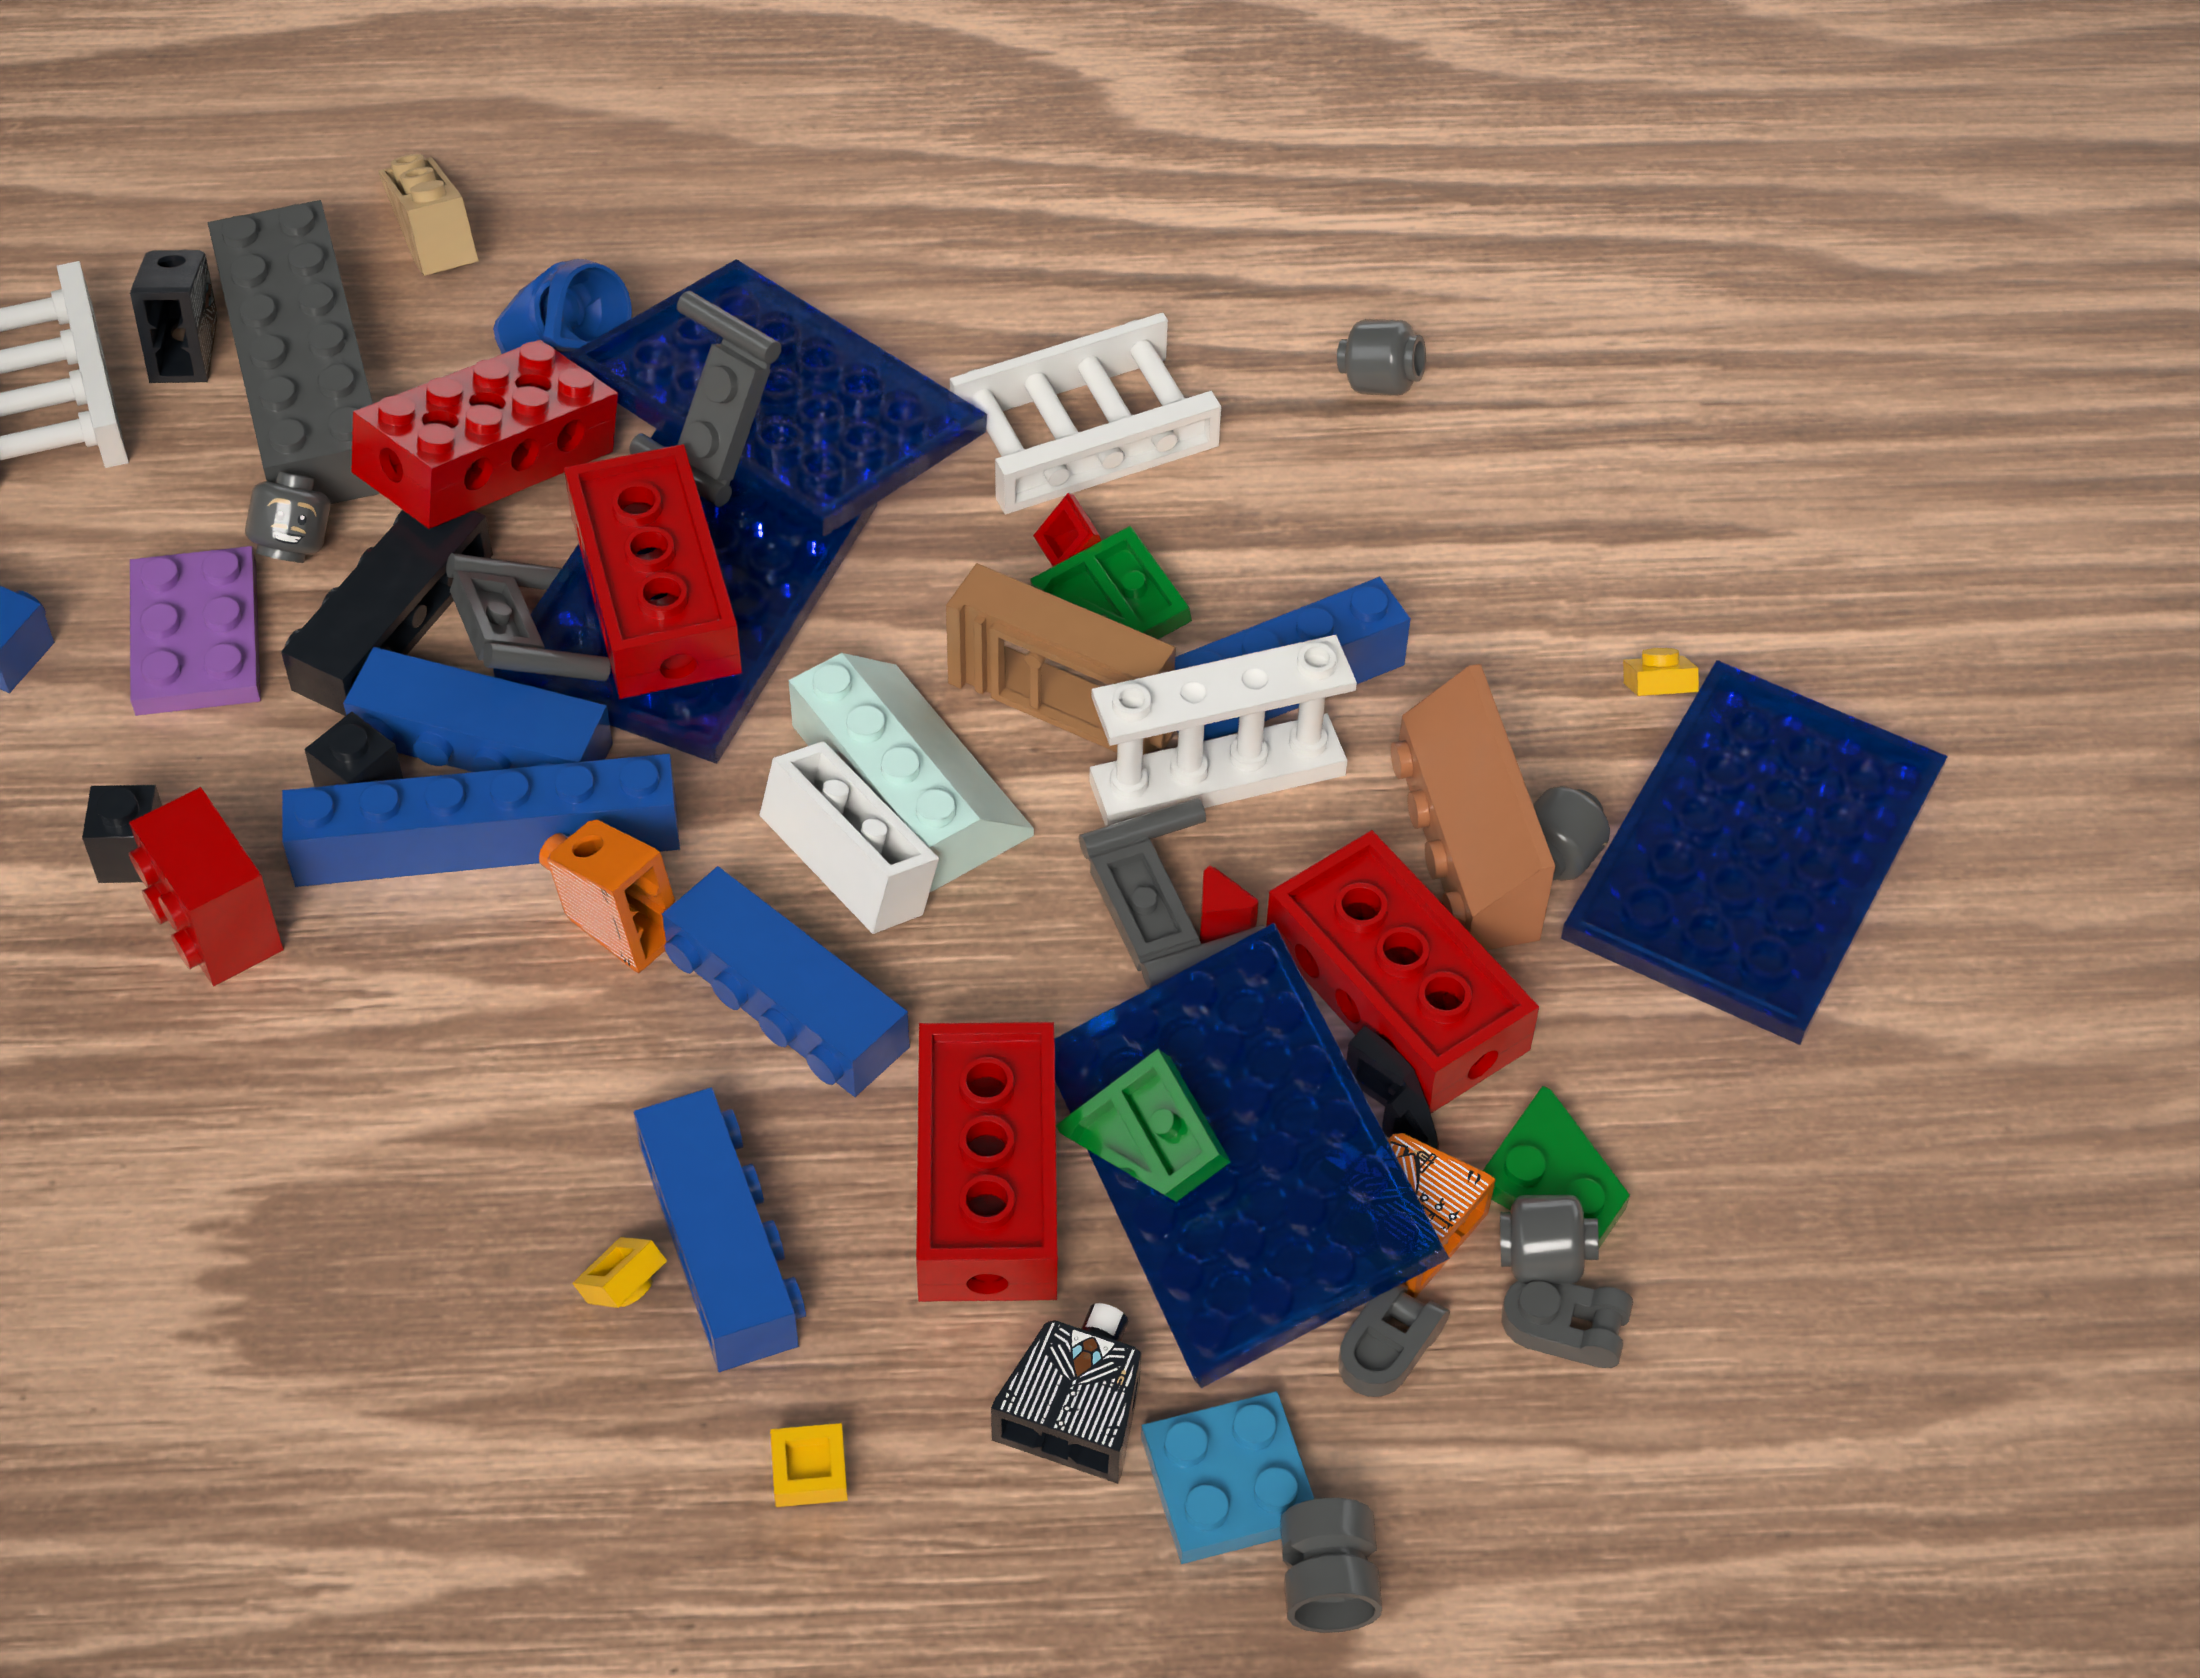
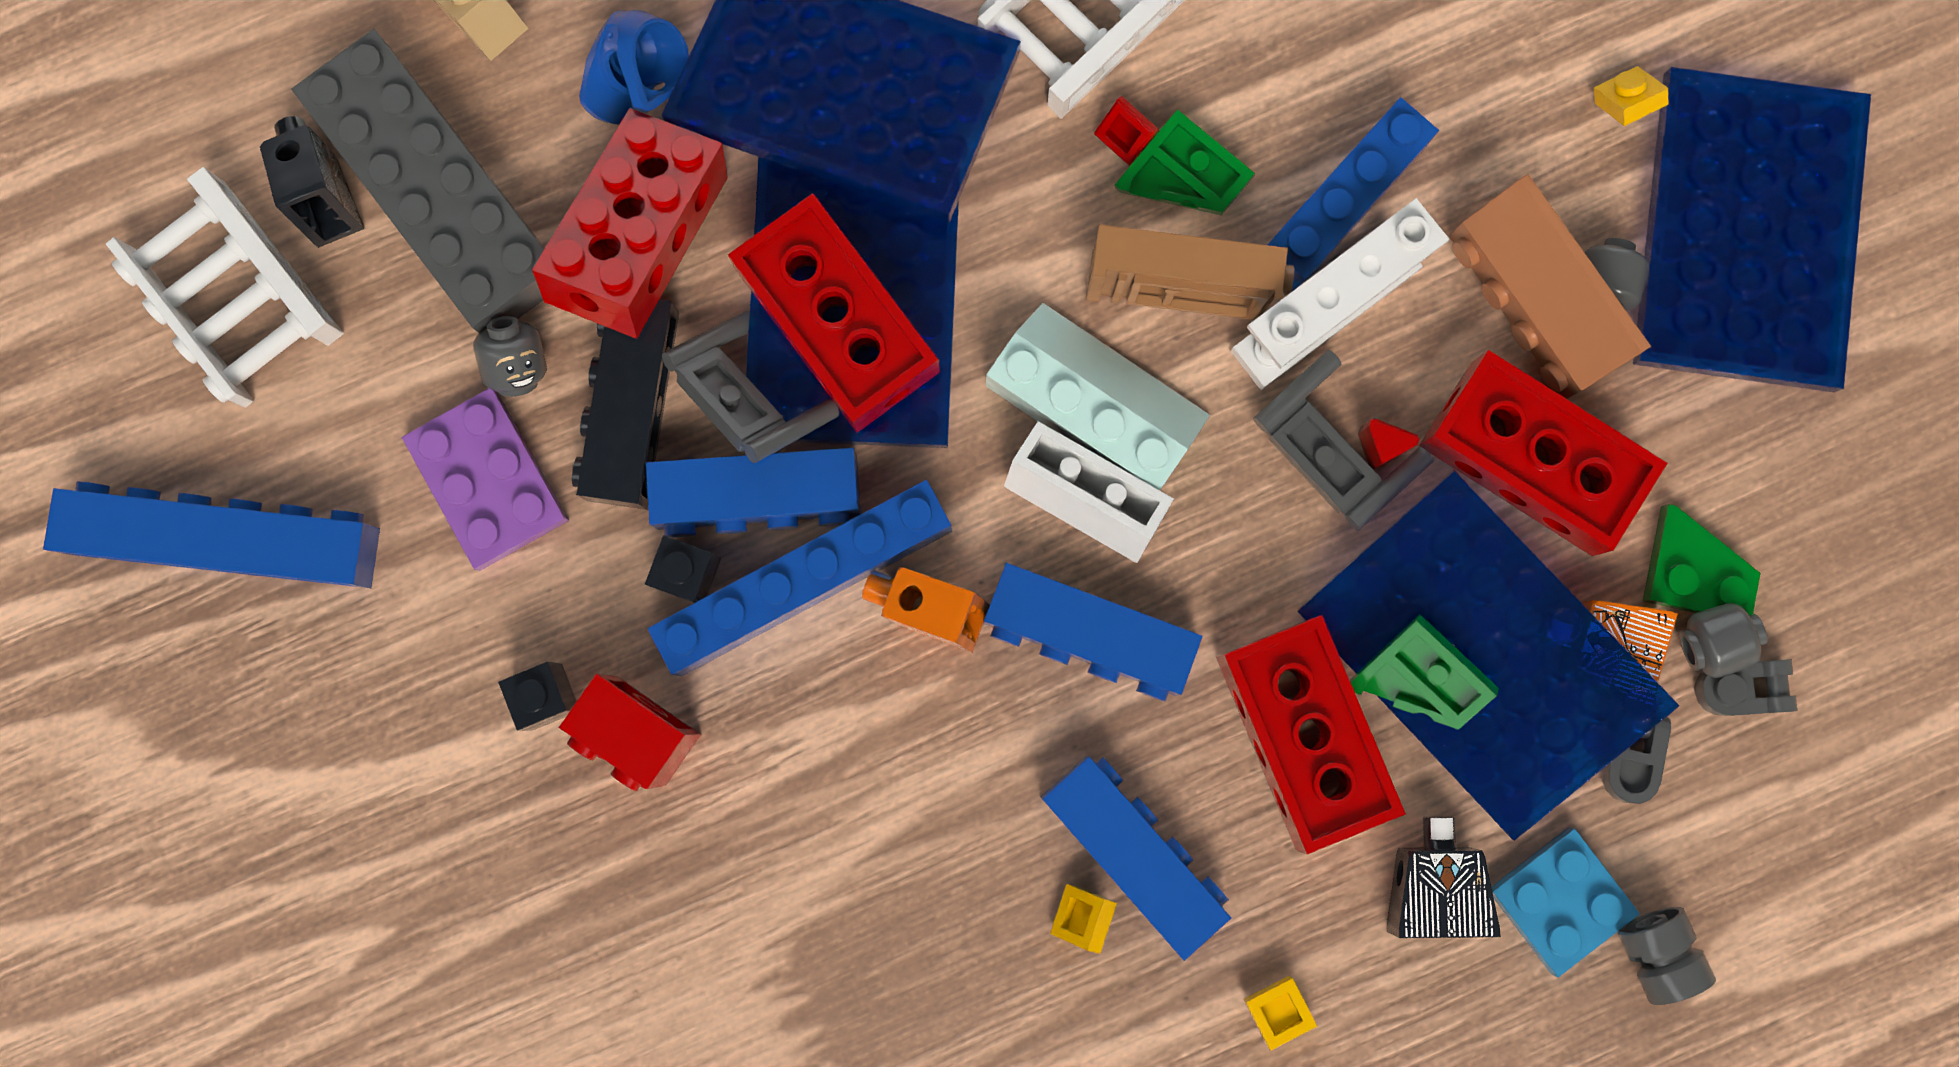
camera: 20 degrees left, 30 degrees up
(723, 399) = (828, 138): dark grey plate -> none
(1394, 1084) = (1580, 562): black slope -> none

